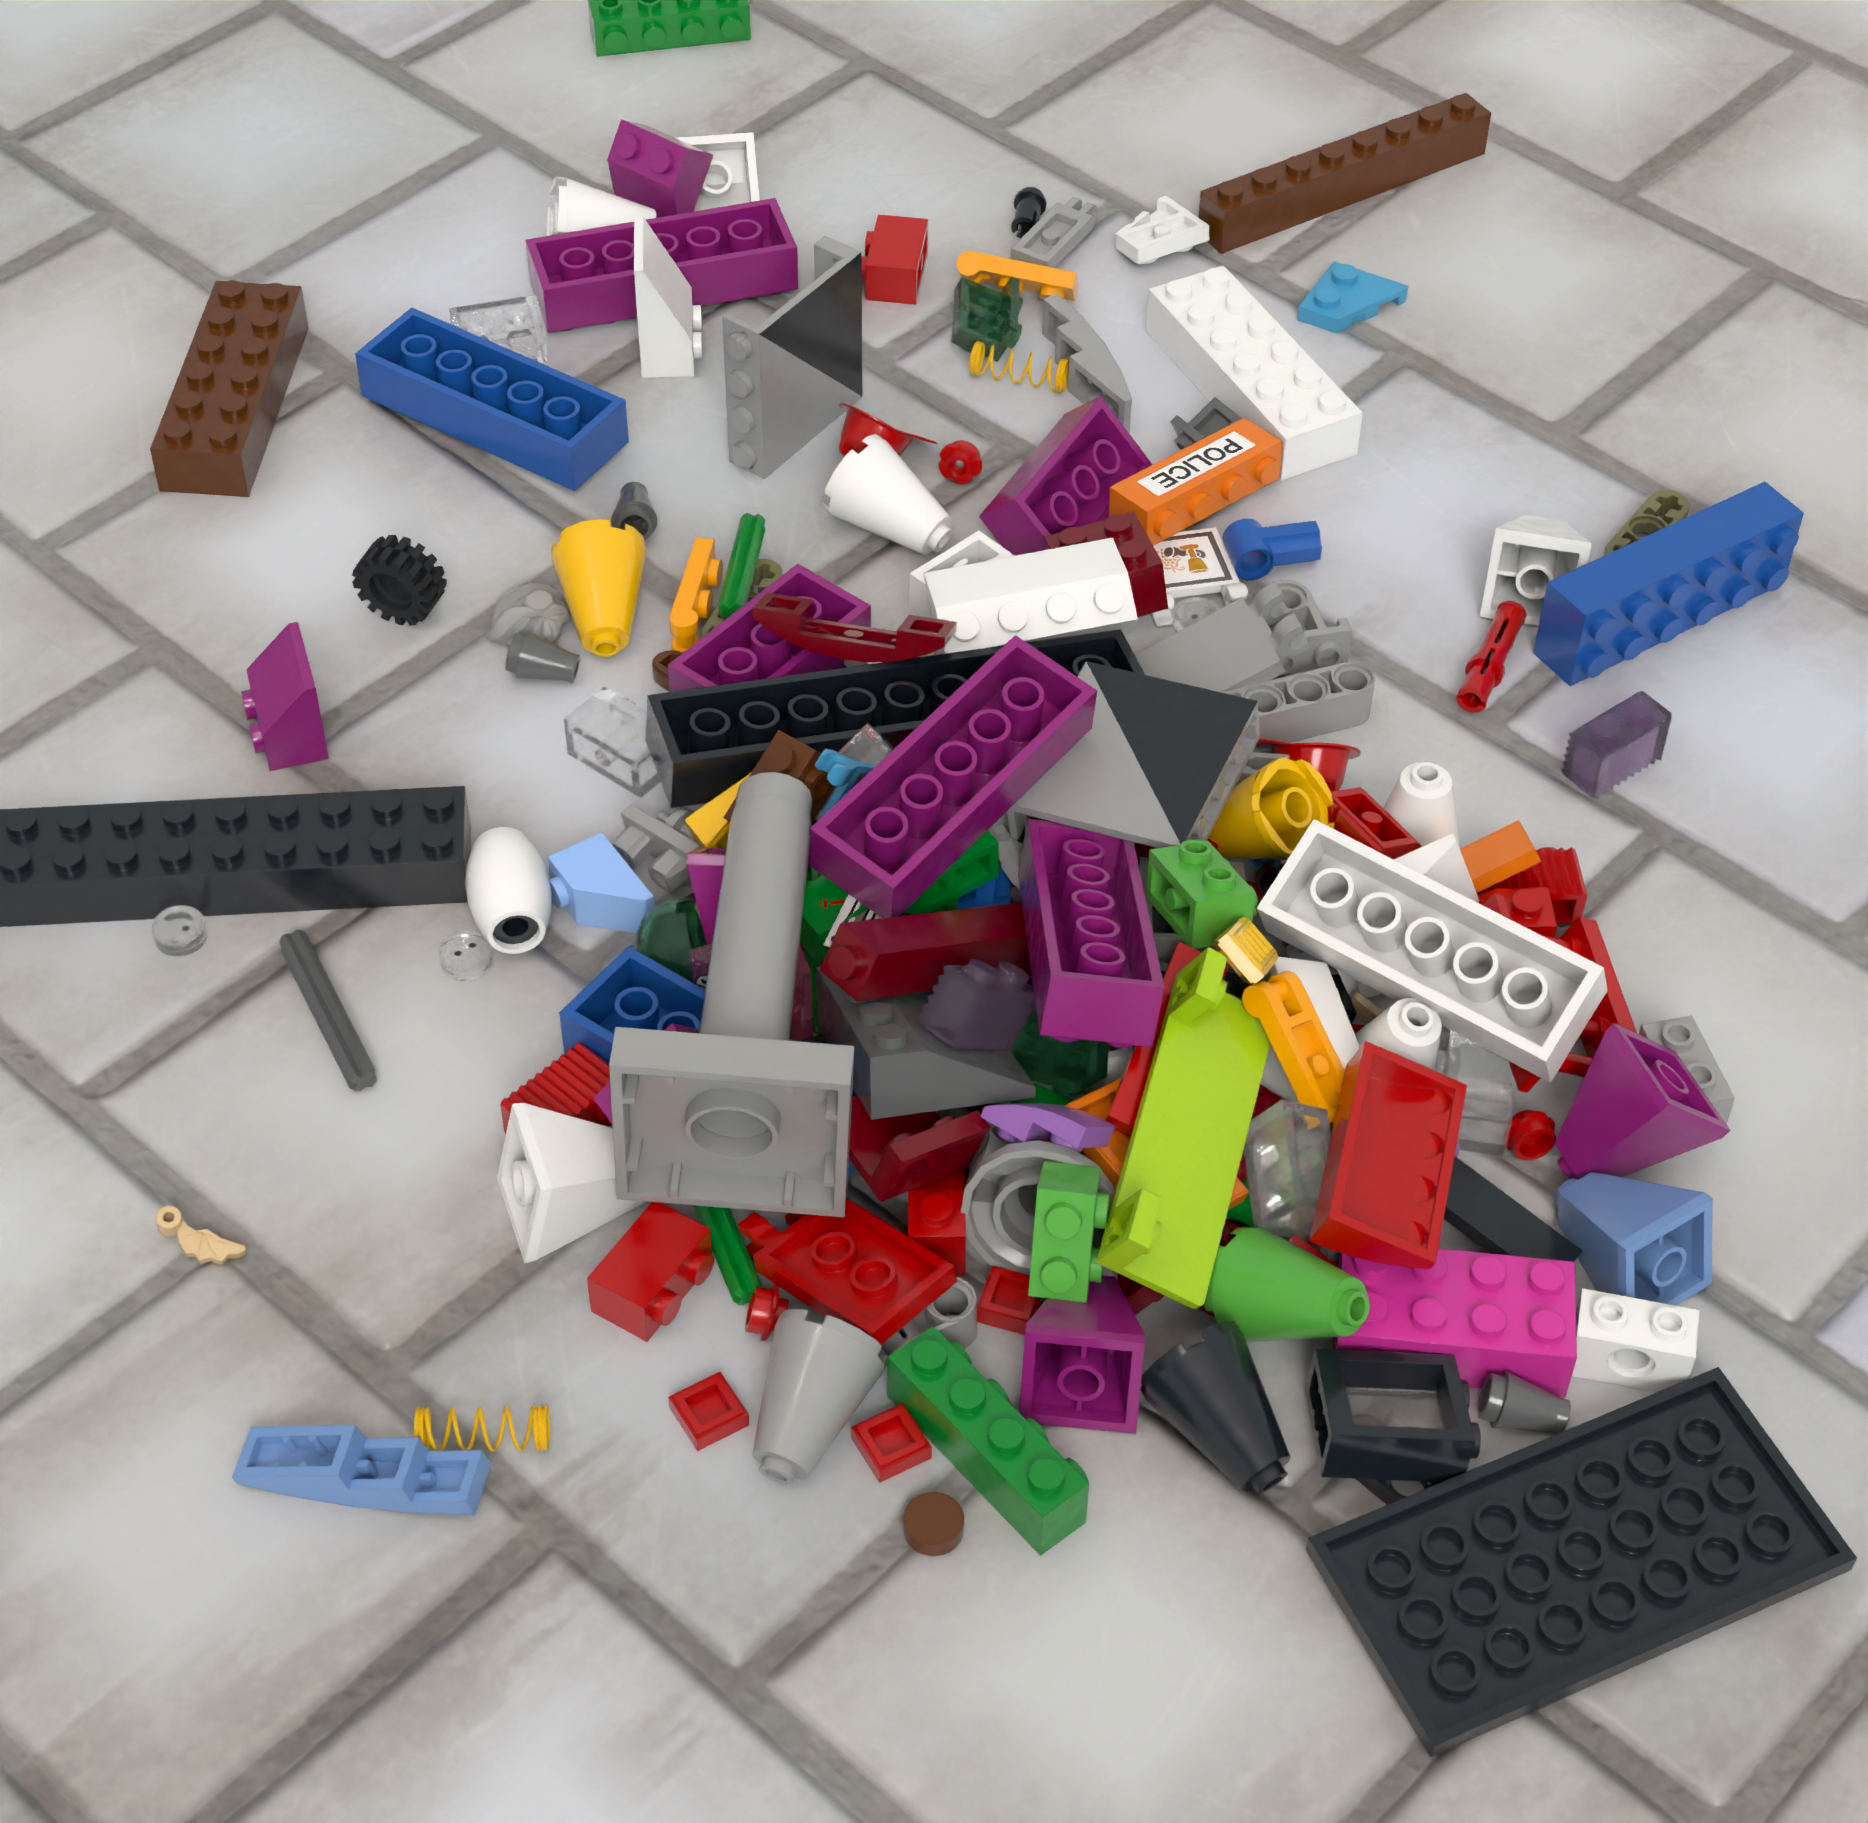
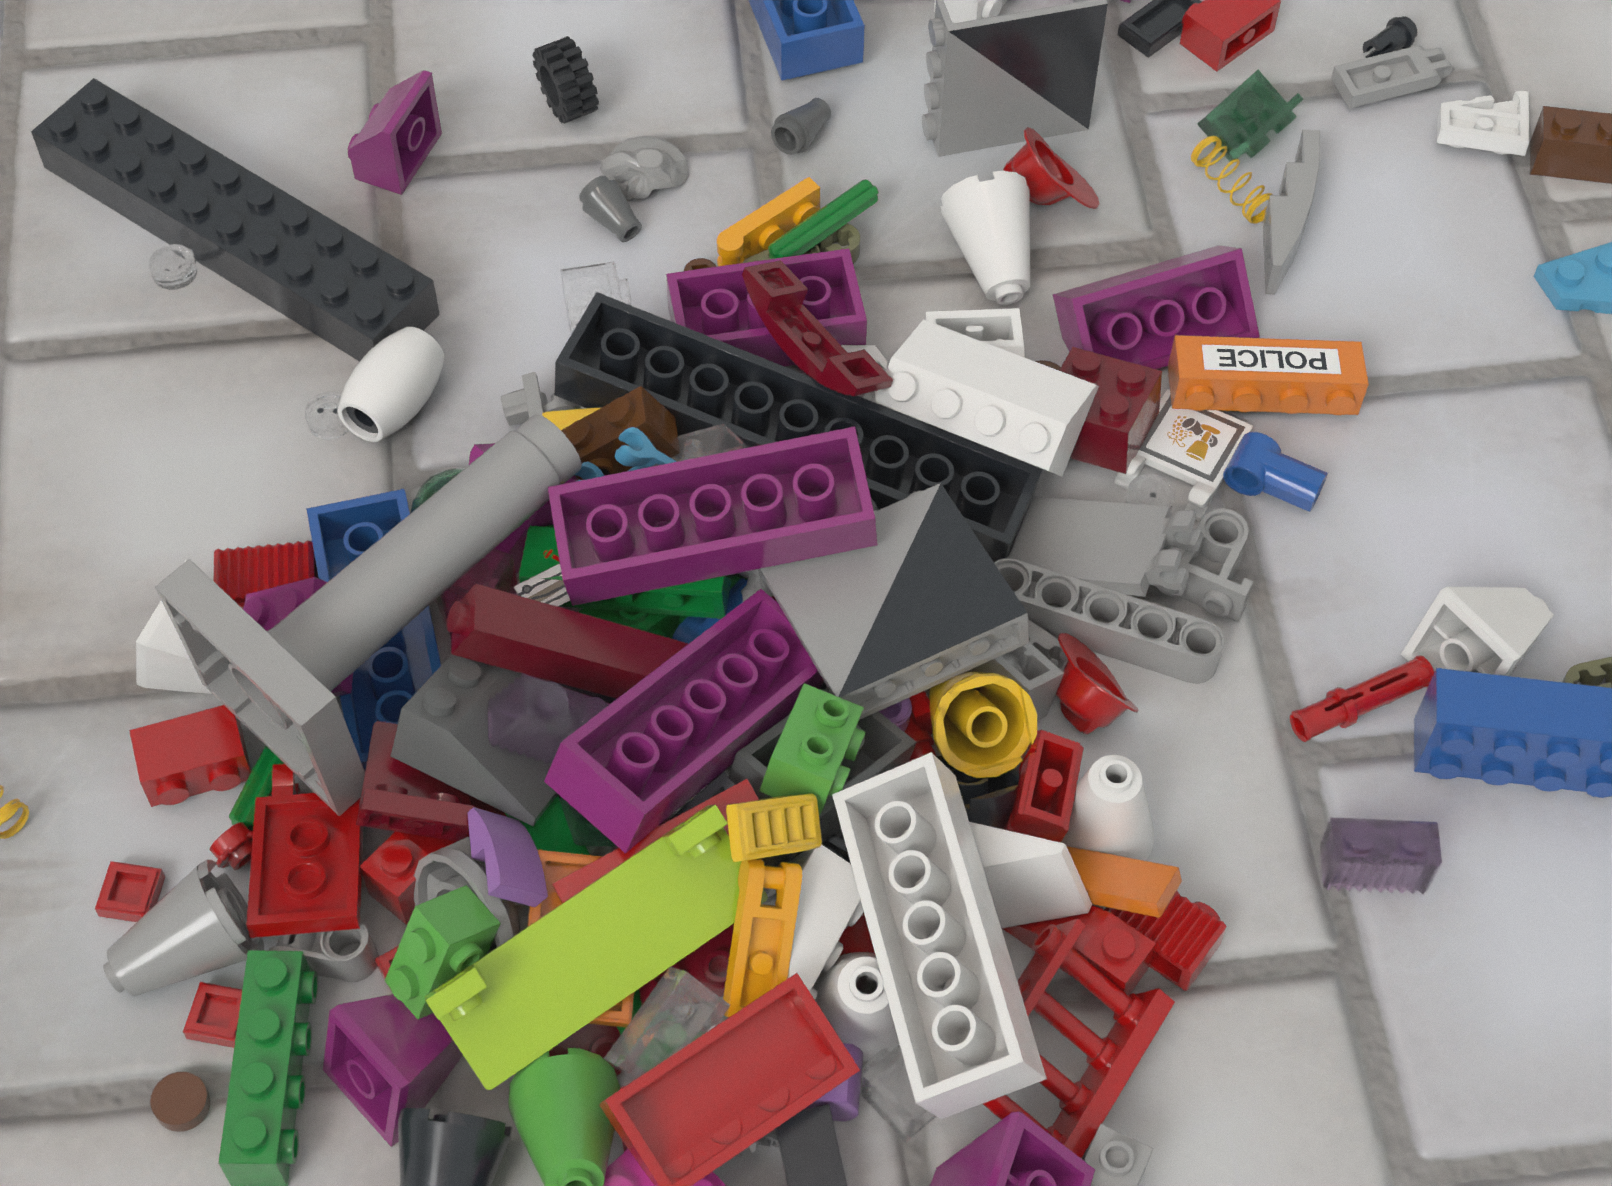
camera: 40 degrees right, 10 degrees up
(328, 1010) = (199, 396): dark grey axle -> none
(598, 886) = (460, 416): light blue slope -> none
(600, 581) = (704, 174): yellow cone -> none
(964, 452) = (1095, 236): red plate -> none
(1033, 277) = (1336, 120): light orange plate -> none
(1208, 421) = (1338, 326): dark grey bracket -> none
(1253, 368) = (1425, 304): white brick -> none
(1531, 1134) = (932, 1142): red plate -> none

